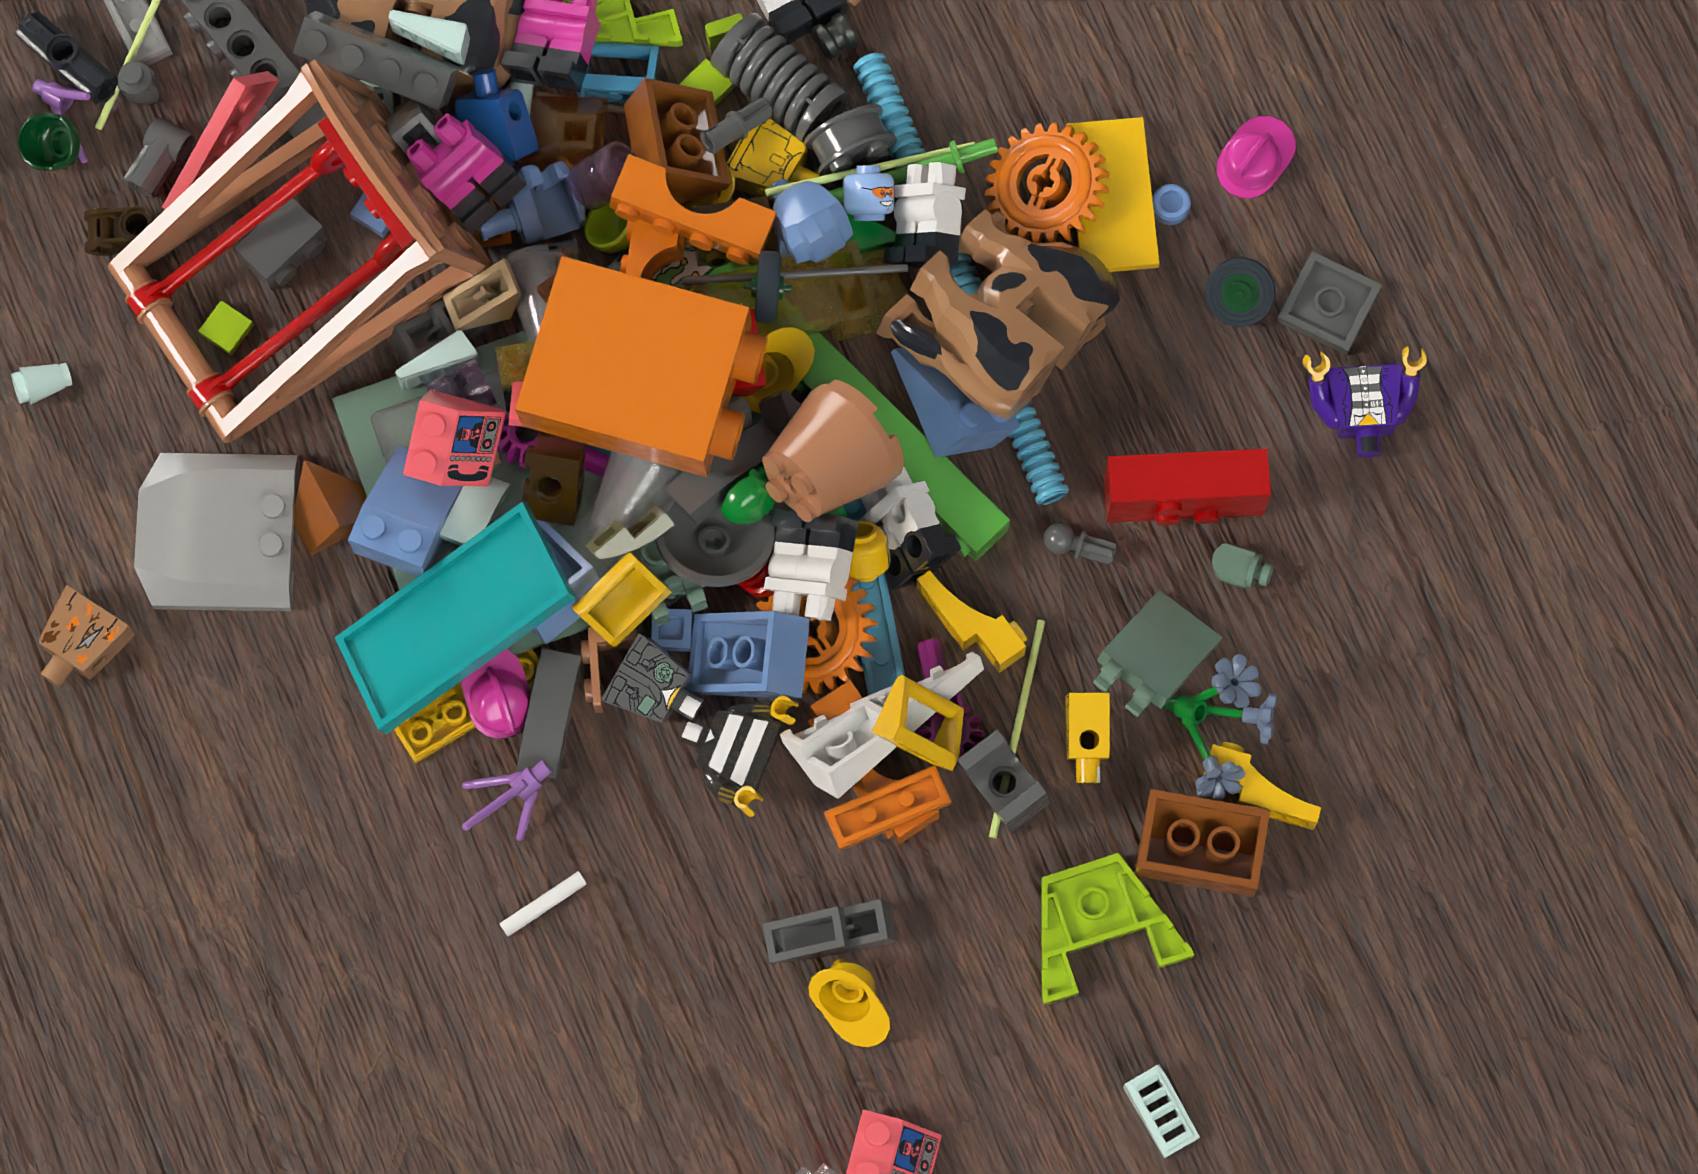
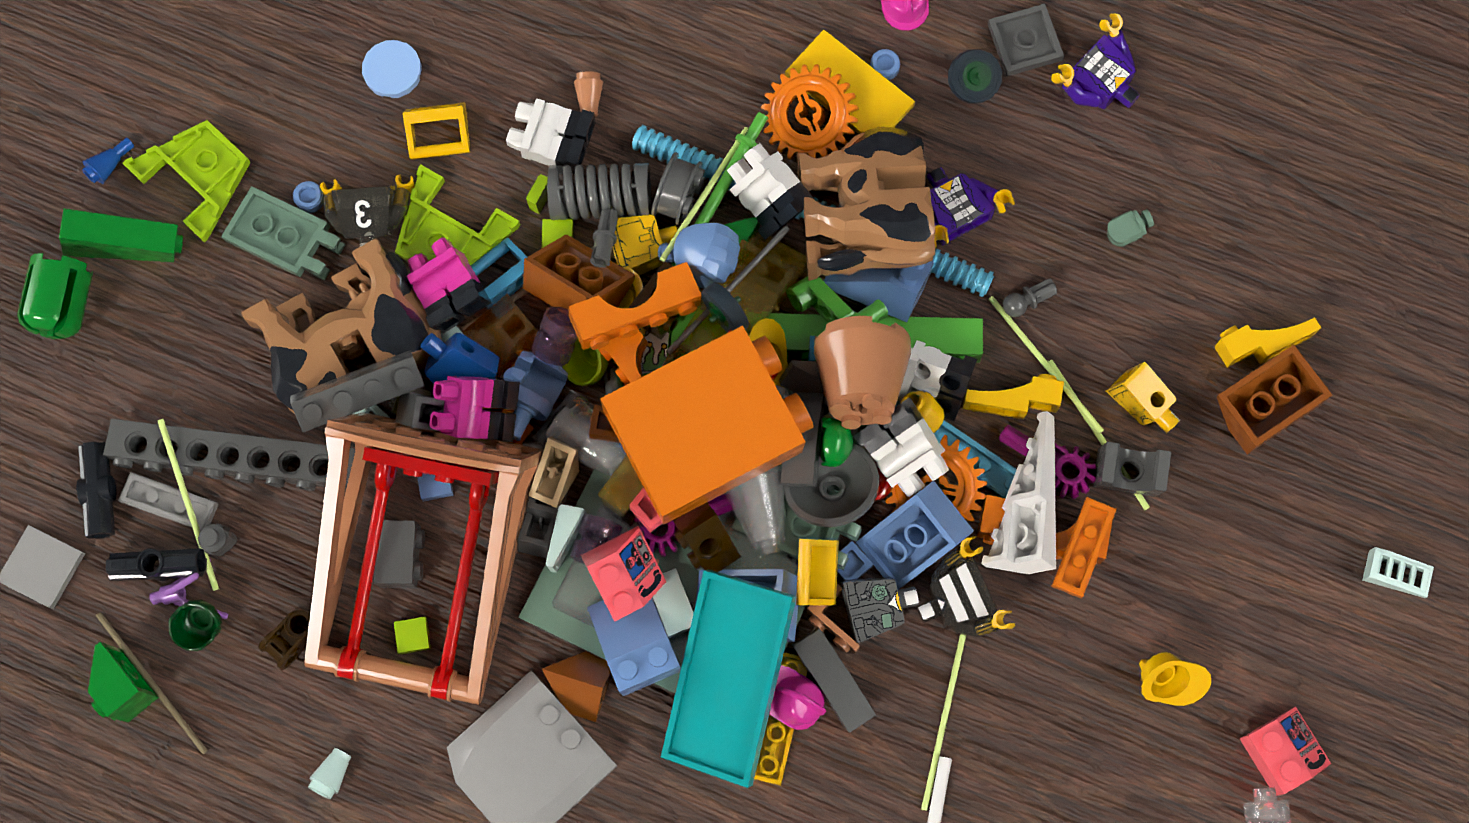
camera: 40 degrees left, 0 degrees up
(162, 149) = (269, 565): dark grey piece -> none
(227, 125) = (301, 523): coral wing -> none
(438, 35) = (379, 343): light aqua slope -> none
(523, 784) = (863, 736): medium lavender plant -> none
(613, 846) = (943, 722): none -> yellowish green axle
(618, 540) = (784, 540): slope -> none
(830, 932) = (1117, 651): dark grey slope -> none
(835, 36) = (605, 140): pearl dark grey wheel -> none
(868, 194) = (721, 206): light blue head -> none
(878, 354) = (828, 303): none -> bright green beam
(892, 724) = (1048, 492): yellow tile -> none
(1032, 622) = (1046, 365): none -> yellowish green axle
(1095, 906) = (1245, 494): lime wing -> none
(1096, 397) = (962, 204): none -> torso
(1156, 652) = (1139, 317): sand green tile -> none
(1186, 486) = (1059, 208): red brick -> none
(1233, 685) = (1221, 290): sand blue plant -> none

